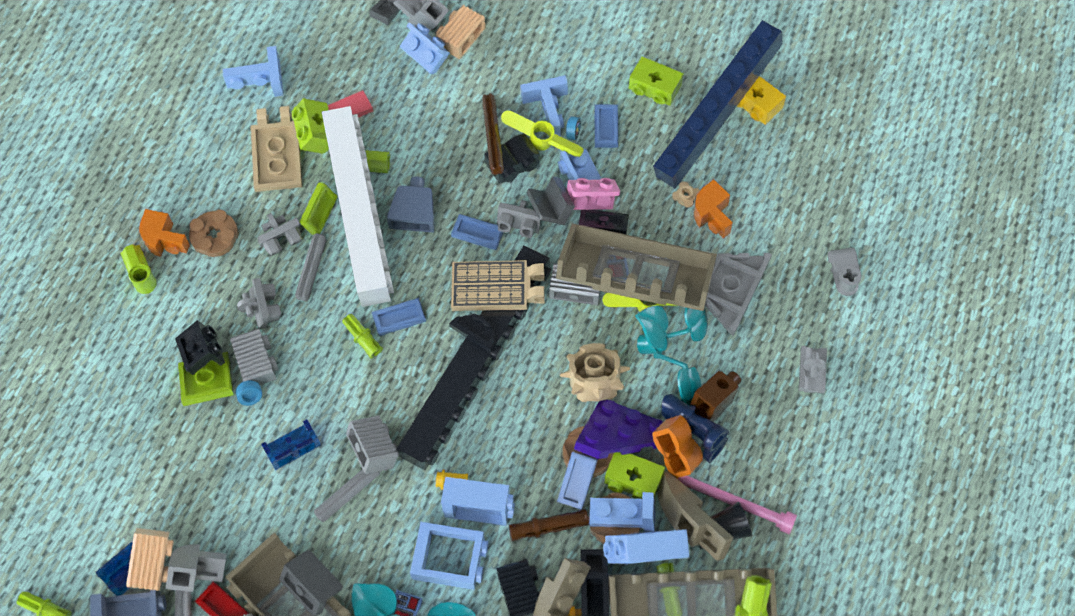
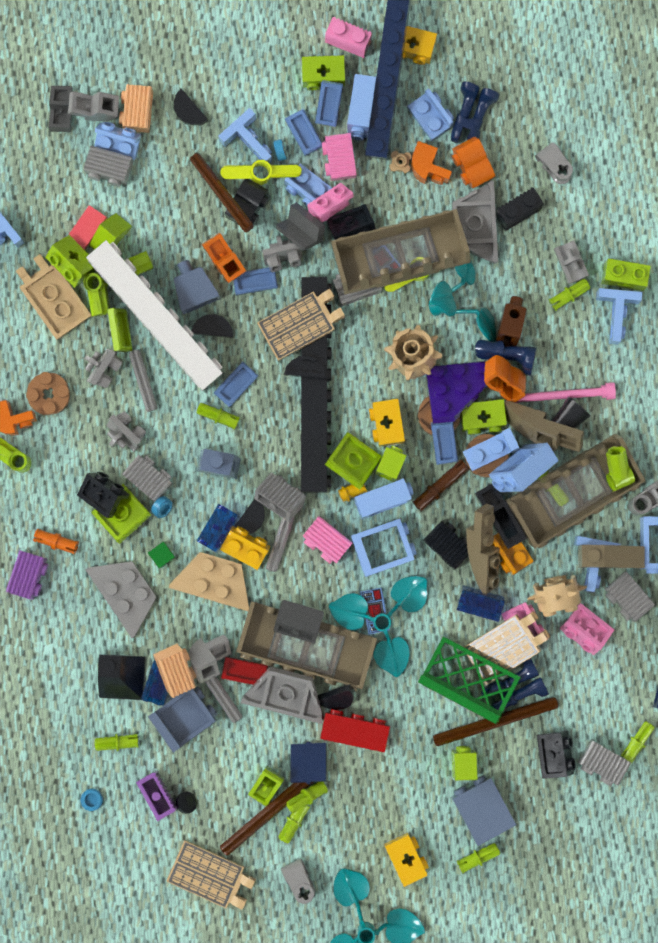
camera: 30 degrees left, 20 degrees up
(74, 388) = (27, 575): none -> medium lavender brick
(93, 538) = (121, 676): none -> black slope
(125, 372) = (56, 541): none -> orange pin
(157, 459) = (124, 592): none -> light grey wing
(218, 441) = (161, 555): none -> green piece
(253, 495) = (213, 580): none -> tan wing
(305, 477) = (245, 547): none -> yellow bracket
(318, 167) = (97, 297): none -> lime piece
(329, 376) = (218, 463): none -> sand blue torso
(329, 455) = (252, 517): none -> black tile
(372, 121) = (112, 230): none -> lime slope
(395, 516) = (327, 540): none -> bright pink brick
(402, 65) = (108, 166): none -> light grey brick
(409, 251) = (212, 326): none -> black tile
(458, 191) = (223, 258): none -> orange brick
(470, 448) = (353, 460): none -> lime plate
(506, 56) = (187, 110): none -> black tile
(507, 467) = (391, 463): none -> lime brick
(528, 445) = (390, 410): none -> yellow brick
(627, 159) = (340, 157): none -> bright pink brick
(645, 109) = (329, 103): none -> medium blue tile
(671, 120) = (361, 106): none -> light blue window
(697, 63) = (348, 37): none -> bright pink brick
(741, 167) = (431, 114): none -> light blue bracket
(759, 225) = (473, 162): none -> orange brick
(784, 292) = (519, 209): none -> black brick
(792, 164) = (470, 93): none -> dark blue piece
(795, 402) = (569, 294): none -> lime axle
(848, 433) = (619, 310): none -> light blue bracket
(866, 411) = (625, 274): none -> lime brick

